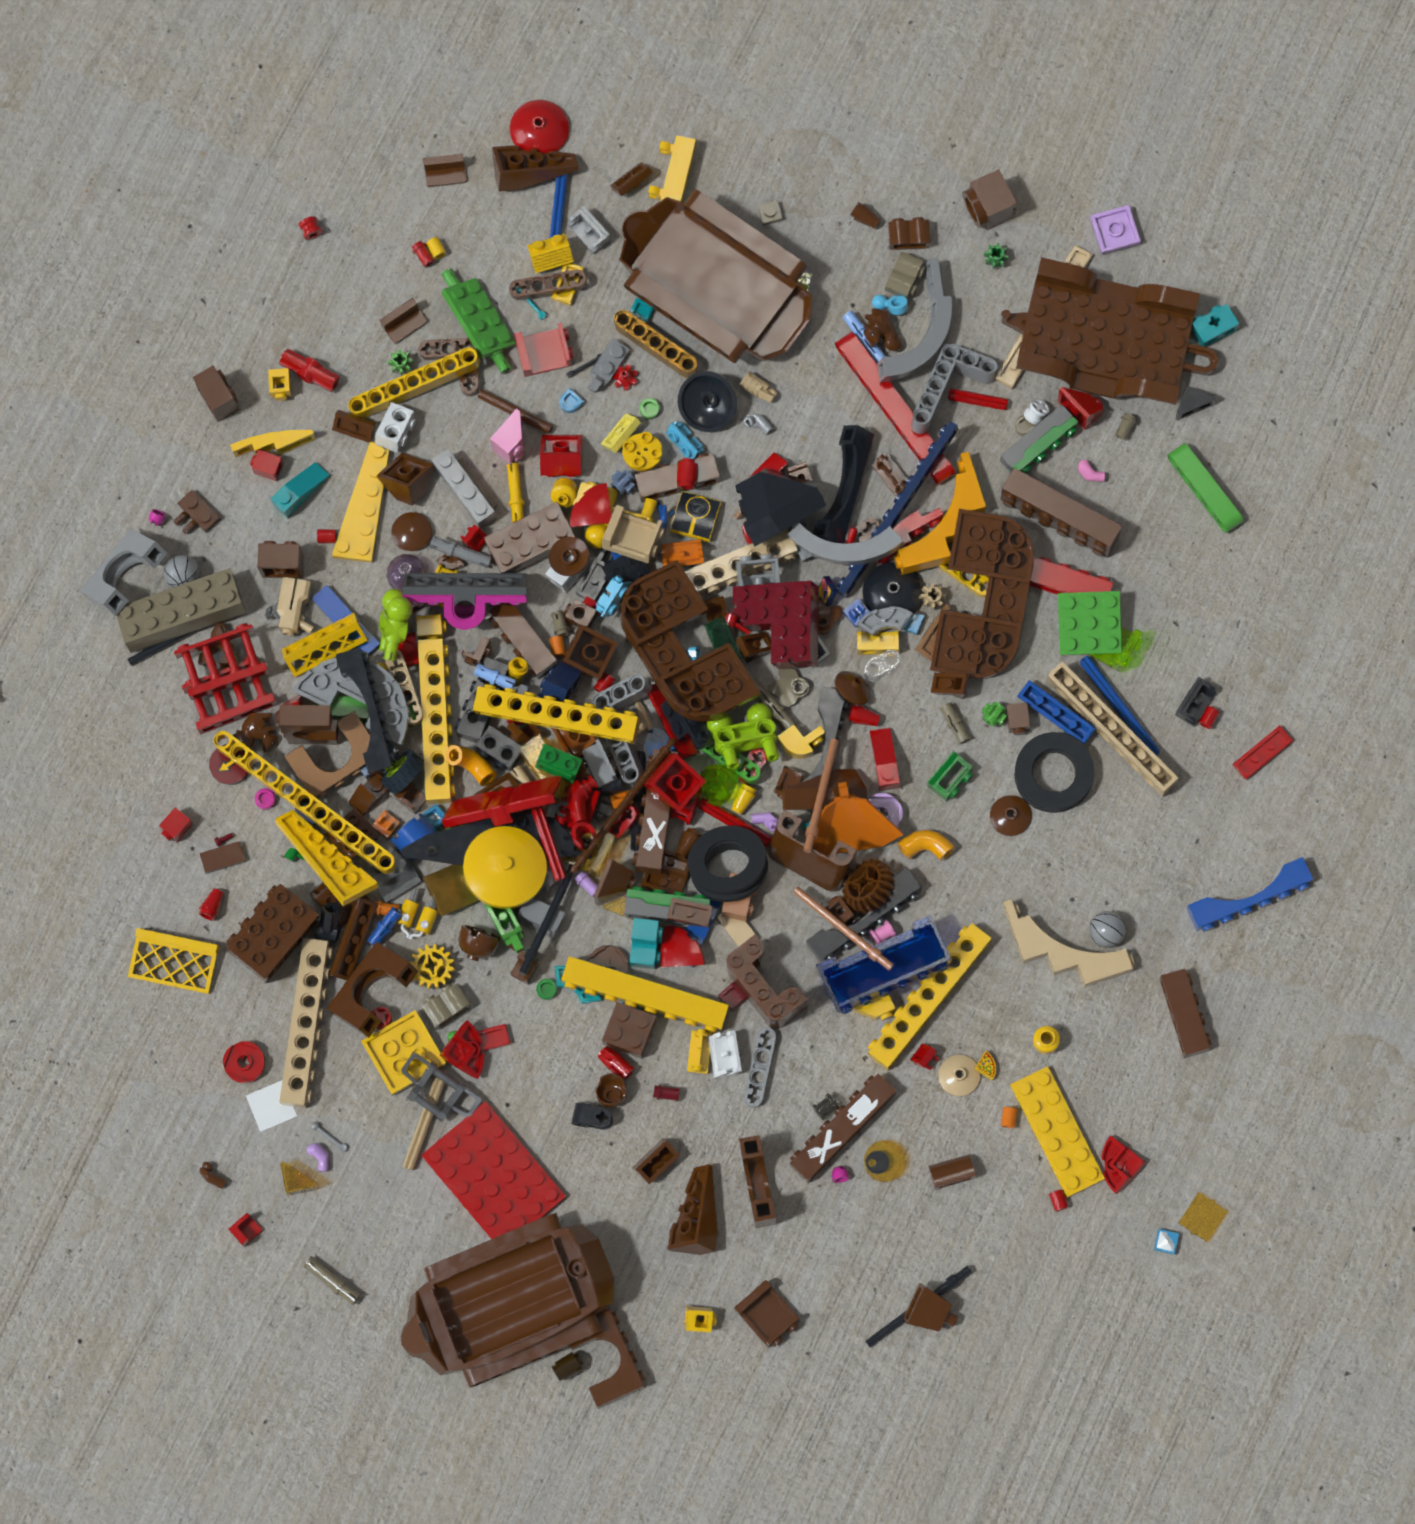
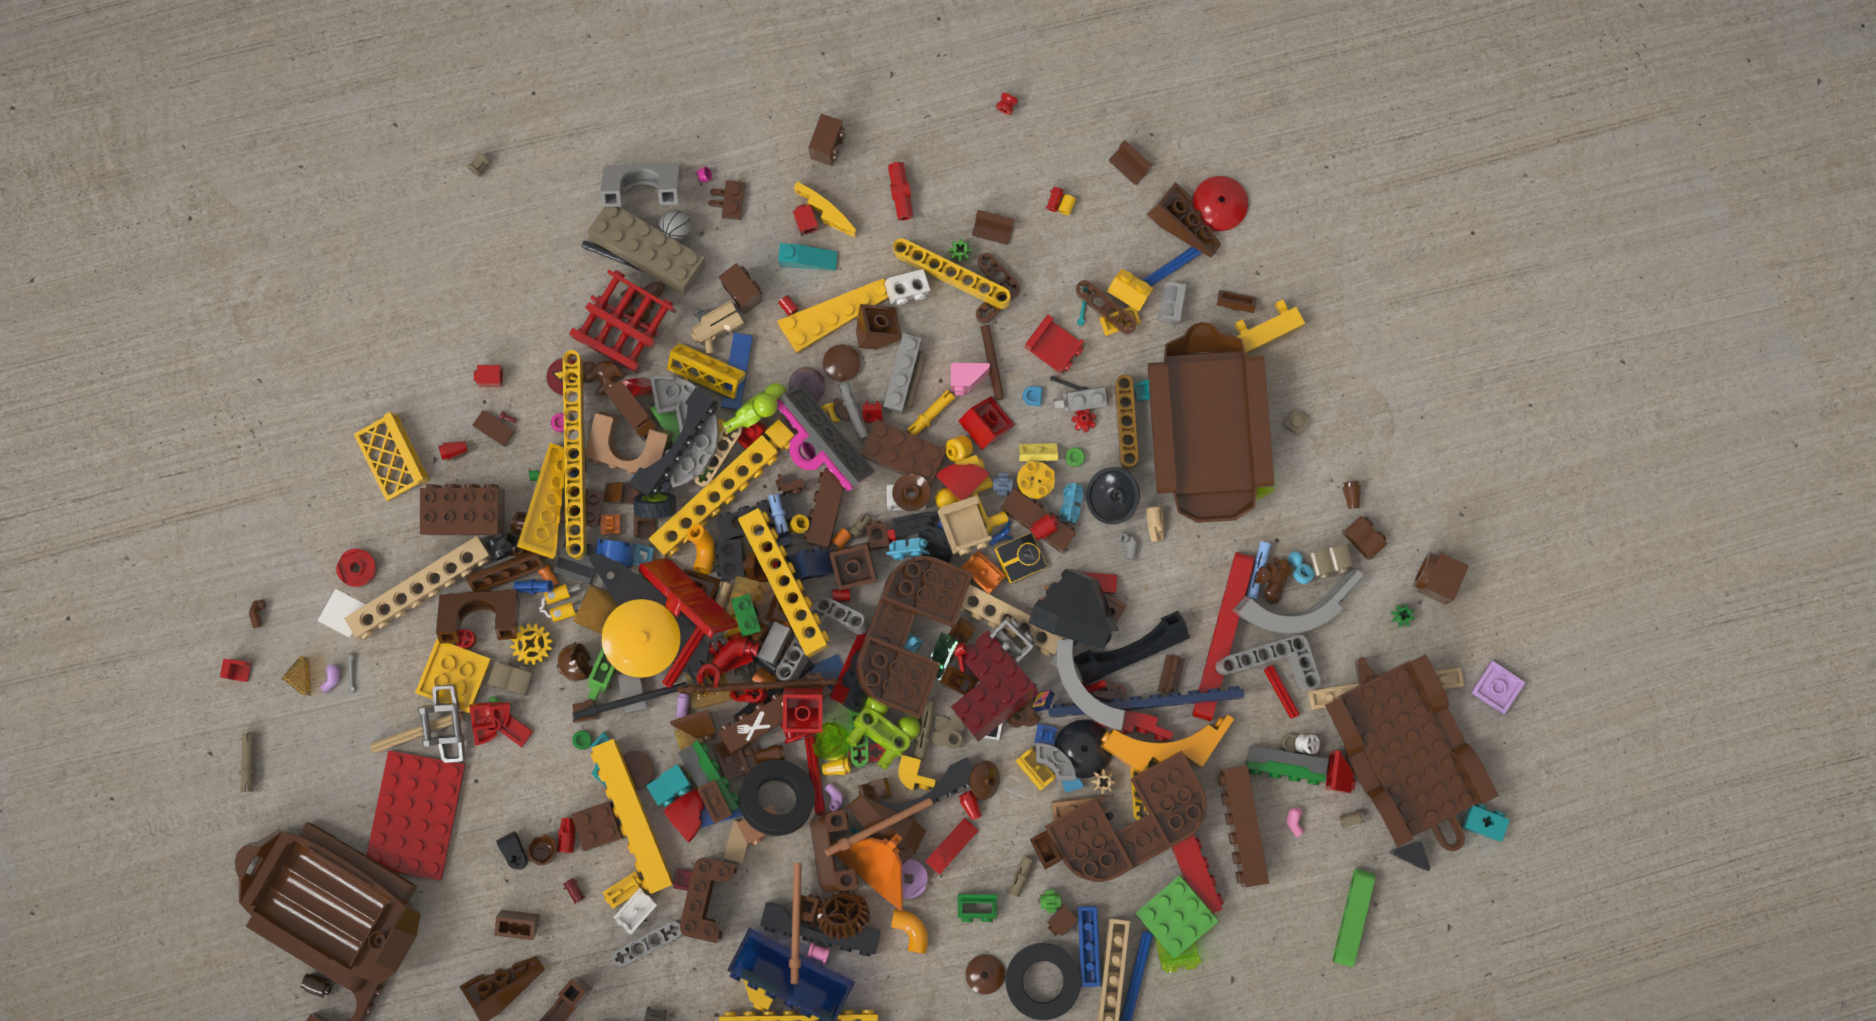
camera: 45 degrees right, 5 degrees up
(276, 378) = (873, 172): yellow brick -> none
(353, 426) = (885, 257): reddish brown plate -> none
(478, 319) = (1038, 279): bright green plate -> none
(643, 715) = (841, 642): tan bar -> none

